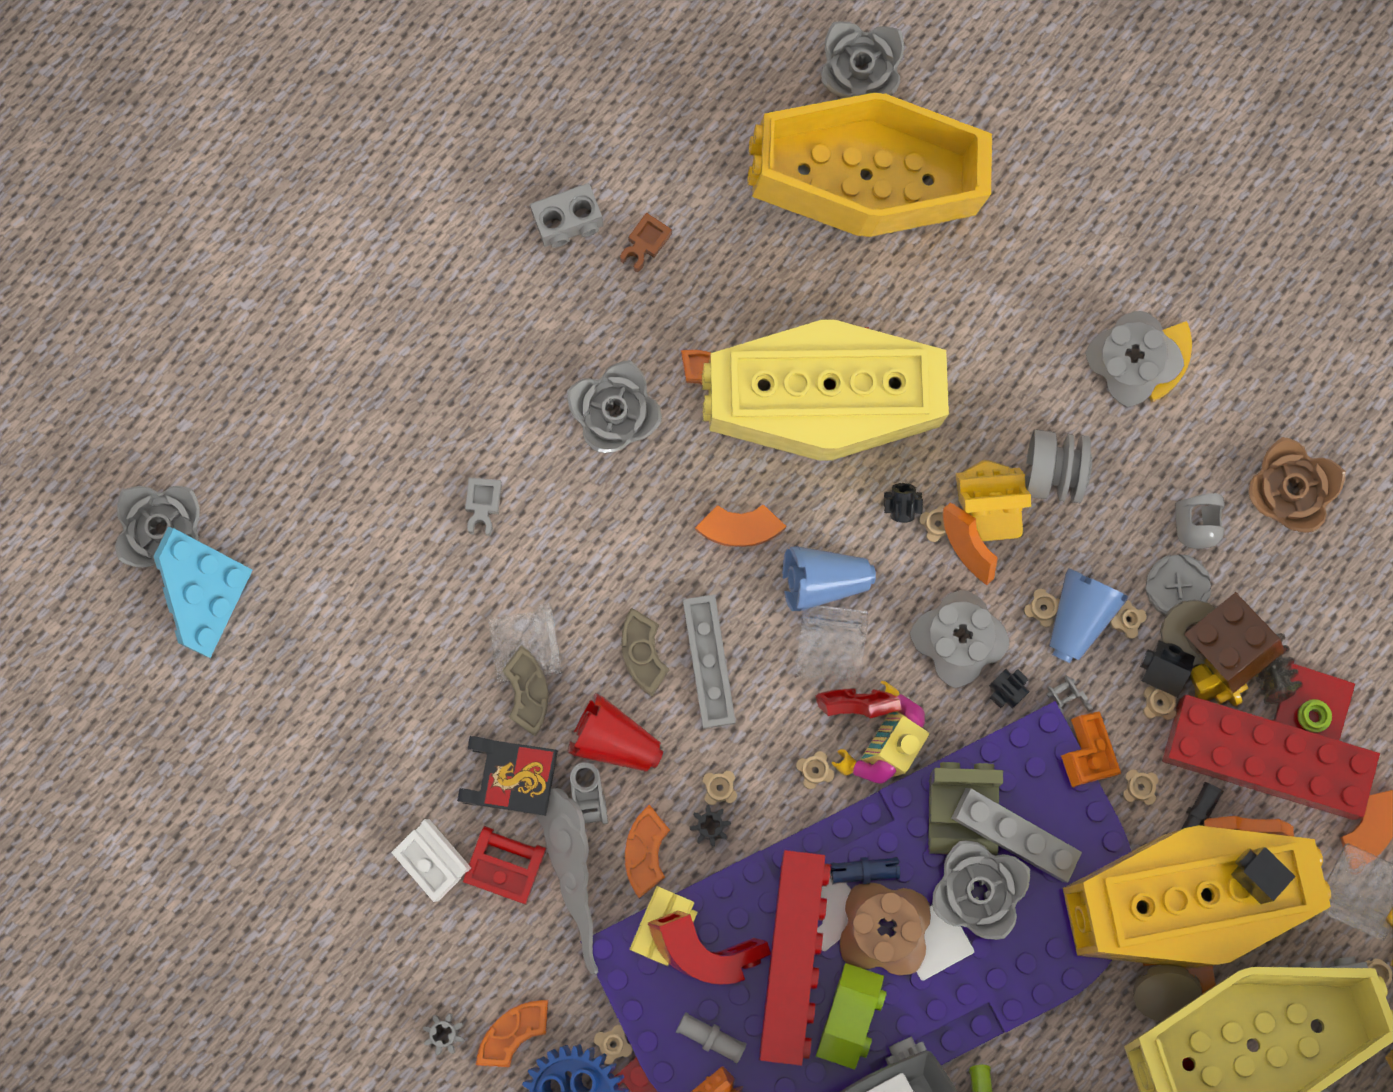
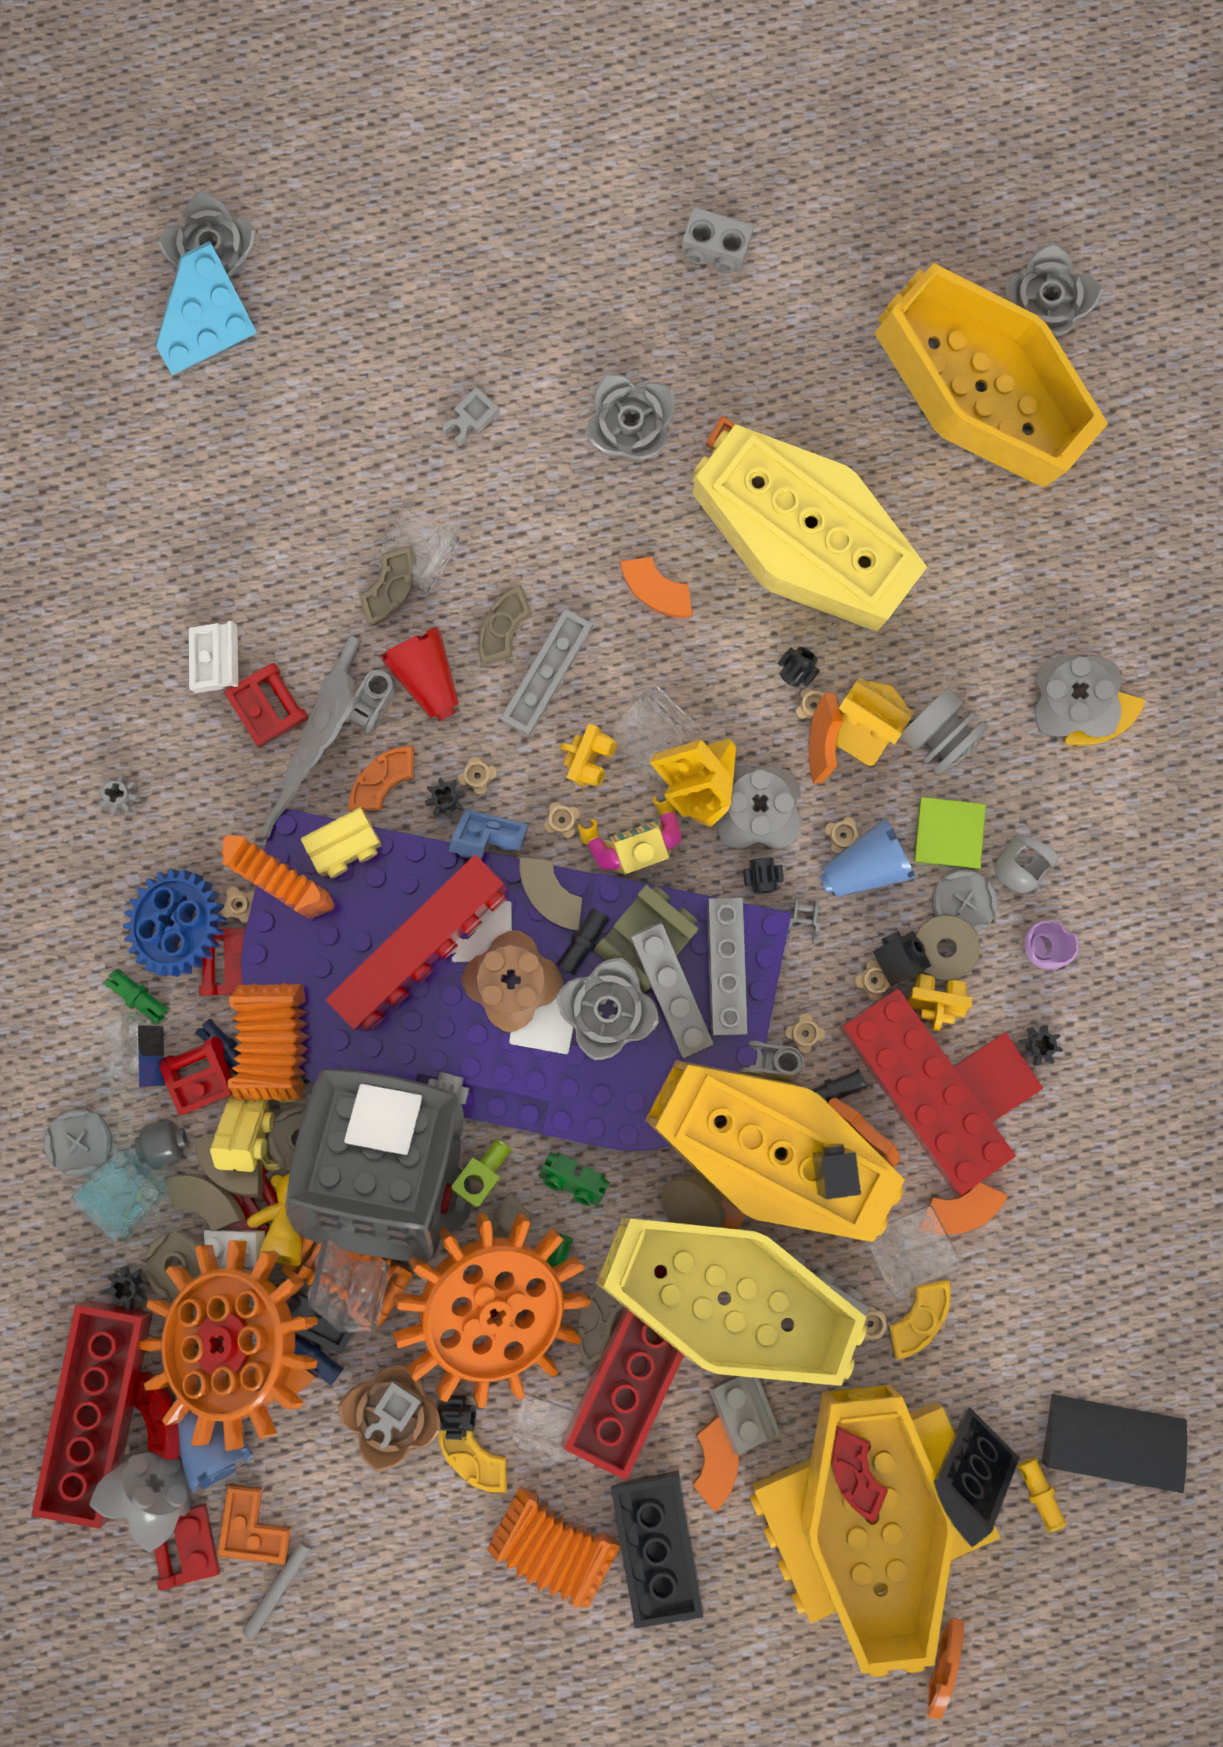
camera: 35 degrees right, 5 degrees up
(511, 1031) = (171, 834): orange tile -> none
(513, 777) = (325, 643): flag -> none
(631, 996) = (275, 878): none -> orange piece
(647, 238) = (766, 307): dark orange plate -> none
(681, 948) = (337, 866): red arch -> none
(711, 1037) = (310, 956): light grey pin -> none
(760, 828) = (479, 829): none -> medium blue plate
(801, 717) = (583, 754): none -> yellow hips
(823, 577) = (689, 676): medium blue cone -> none
(847, 702) = (631, 789): red tile -> none
(850, 1016) = (429, 1024): lime brick -> none
(858, 838) = (547, 894): none -> dark tan tile
(865, 870) = (532, 923): dark blue pin -> none
(901, 652) = (699, 778): none -> yellow piece
(915, 852) = (583, 941): none -> black pin
(1044, 783) = (726, 966): none -> light grey brick
(1072, 1047) = (559, 1175): none -> green hinge
(1096, 757) = (787, 982): orange tile -> none
(1123, 541) = (949, 833): none -> lime tile
(1134, 833) = (768, 1064): none -> light grey piece
(1136, 618) = (893, 895): tan plate -> none
(1234, 642) = (970, 977): reddish brown brick -> none
(1276, 679) = (986, 1021): clear smoke piece -> none
(1279, 560) = (1062, 945): none -> lavender hair
(1317, 479) = (1146, 903): medium nougat brick -> none
(1323, 711) = (998, 1084): lime plate -> none
(1328, 660) = (1033, 1051): none -> black gear

